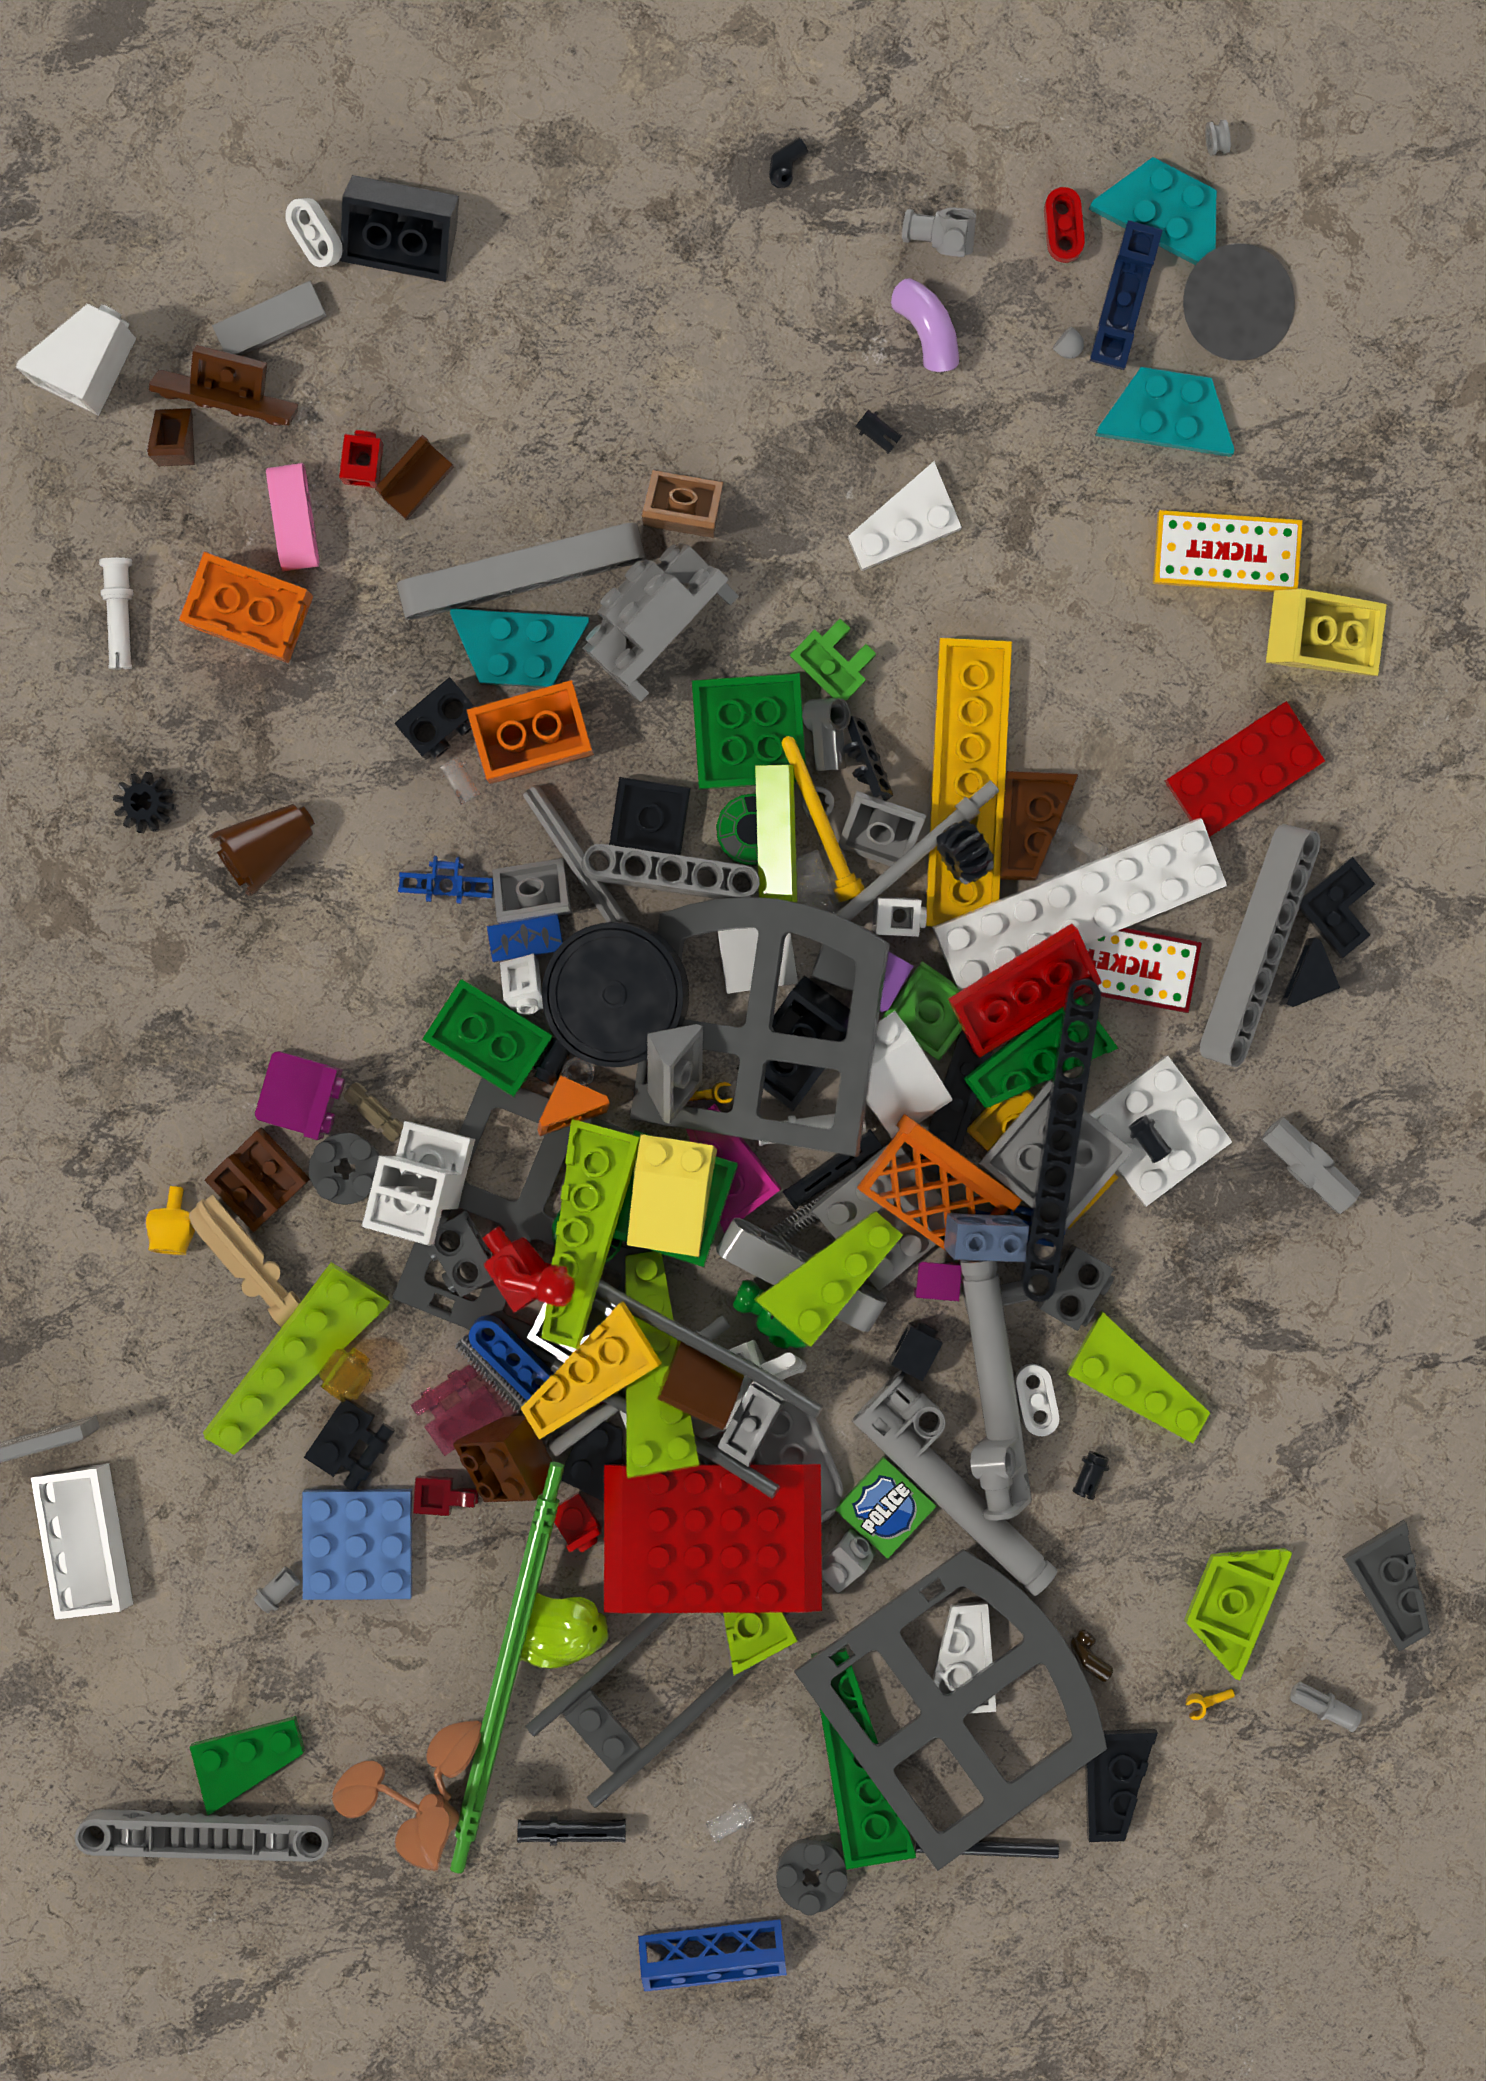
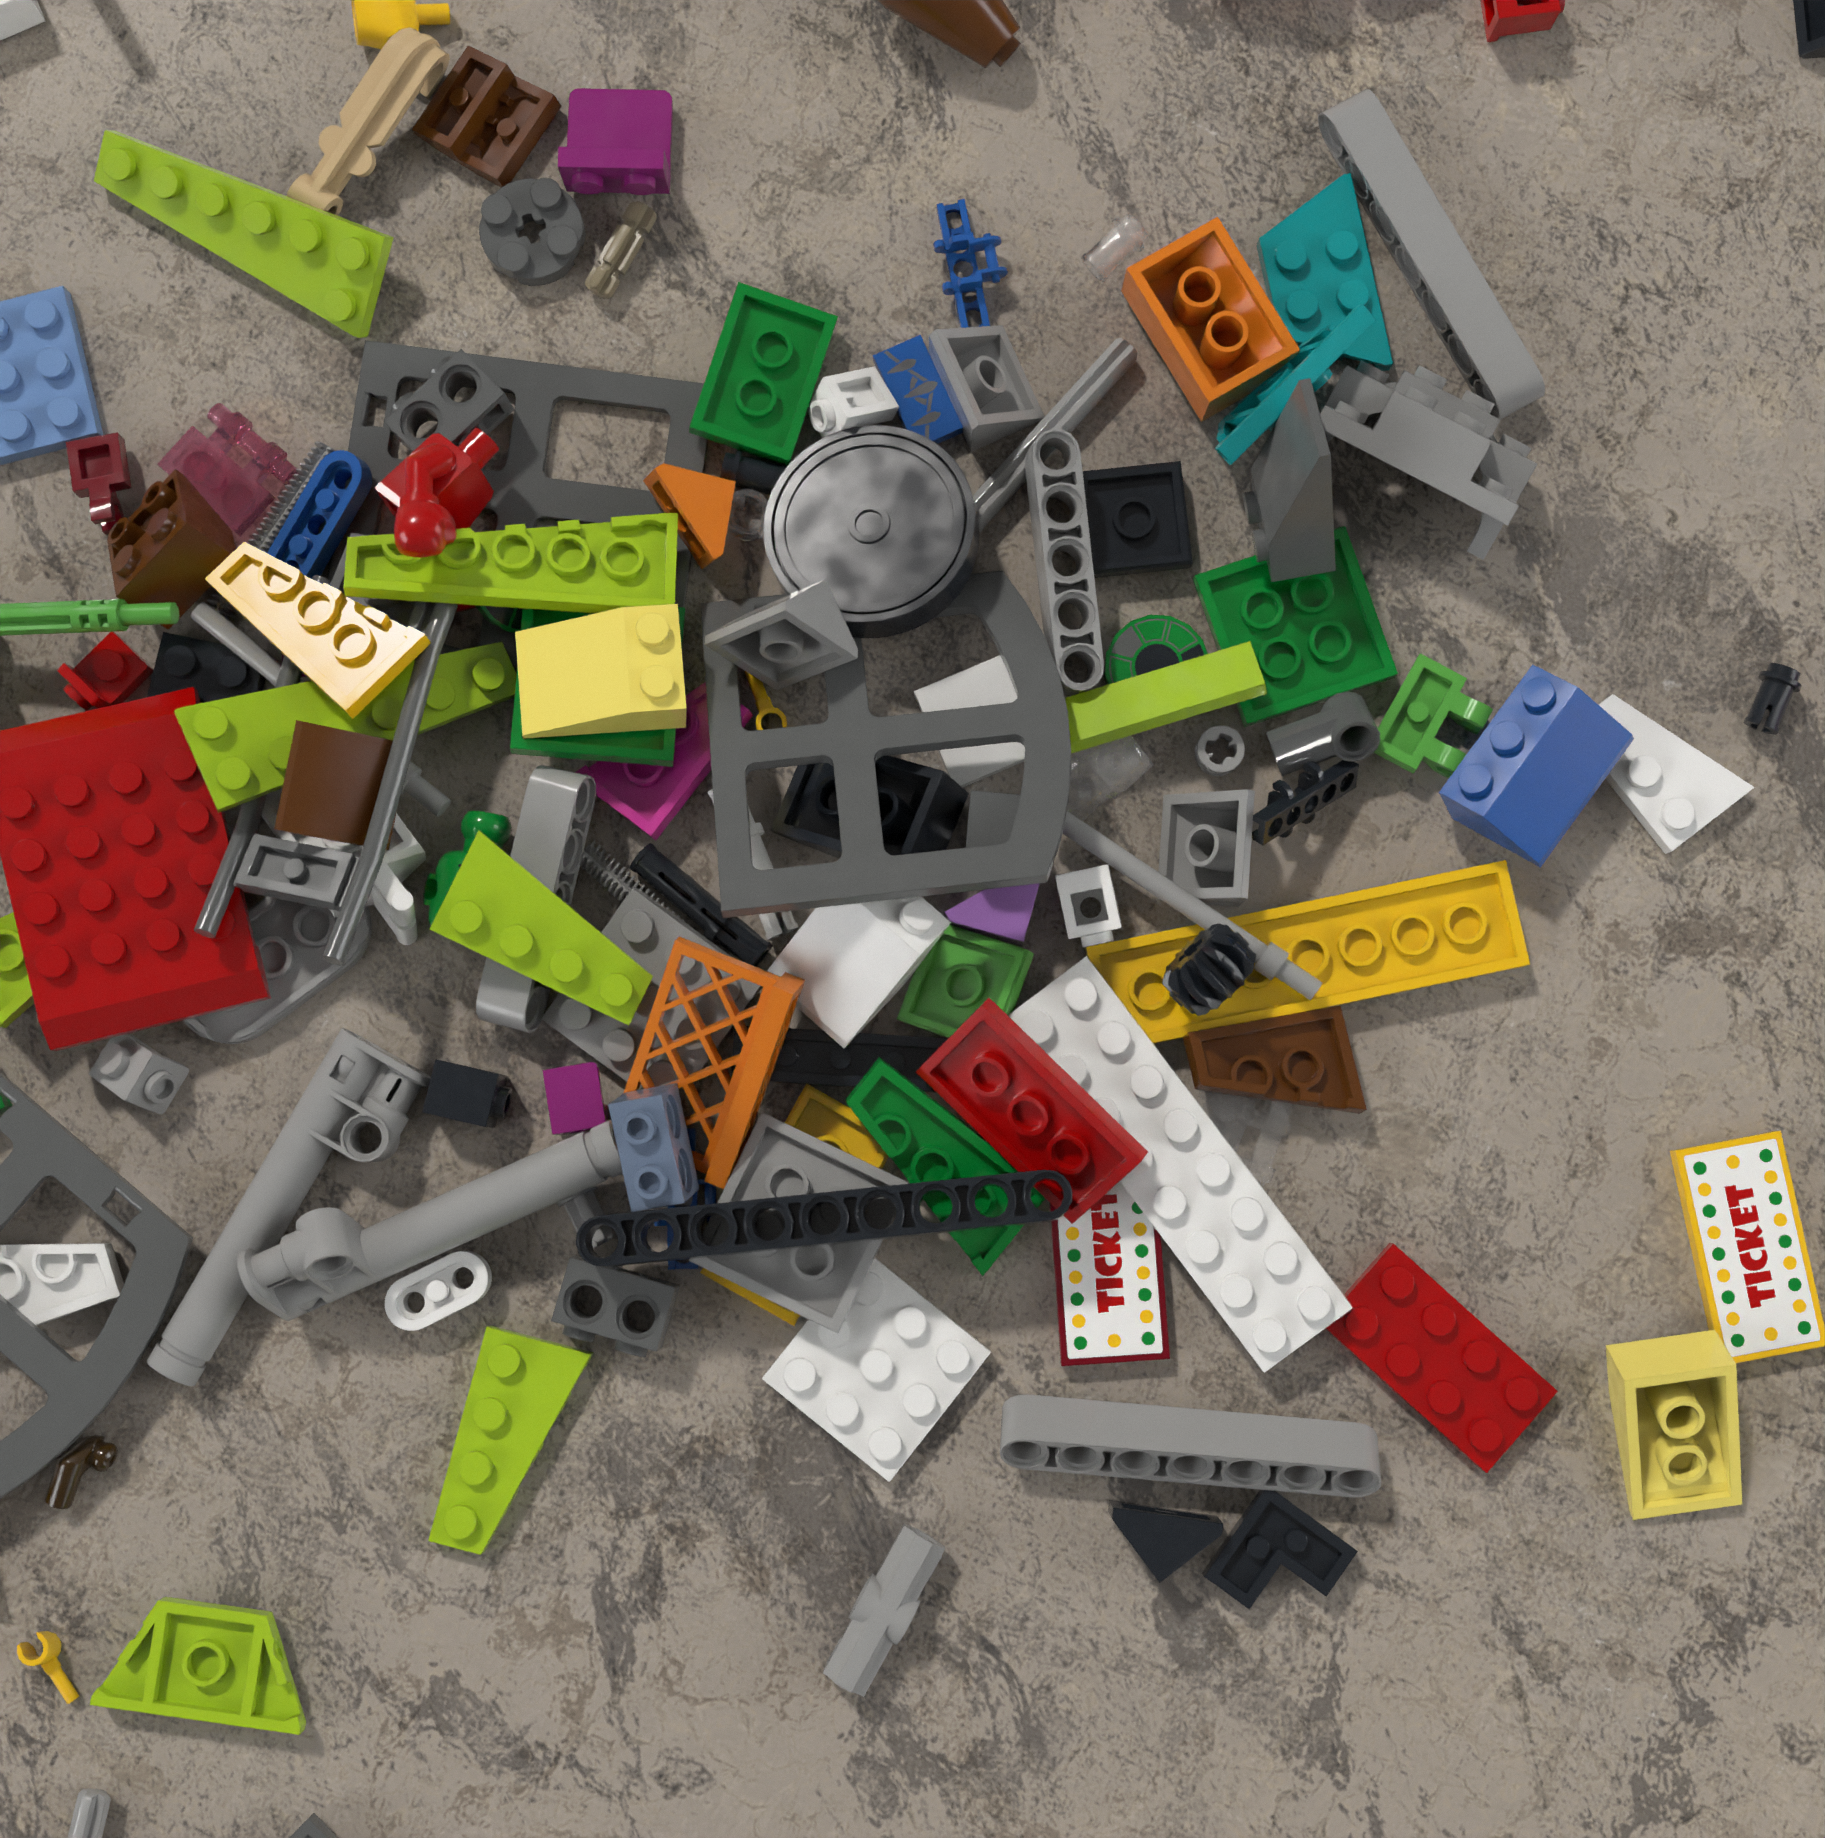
camera: 75 degrees right, 5 degrees down
(339, 1438) = (153, 319): black plate -> none
(346, 1374) = (240, 299): clear yellow head -> none
(413, 478) = (1518, 75): reddish brown panel -> none
(418, 1183) = (524, 315): white bracket -> none
(432, 711) = (1201, 181): black brick -> none
(599, 709) = (1265, 404): none -> teal wing
(669, 713) = (1294, 493): none -> dark grey slope
(682, 504) = (1586, 450): medium nougat slope -> none
(847, 884) = (1117, 819): yellow piece -> none
(885, 602) = (1535, 766): none -> blue slope
(885, 1507) = (230, 1110): tile -> none
(1091, 1474) = (347, 1400): black pin -> none
(1149, 1138) = (861, 1354): black pin -> none

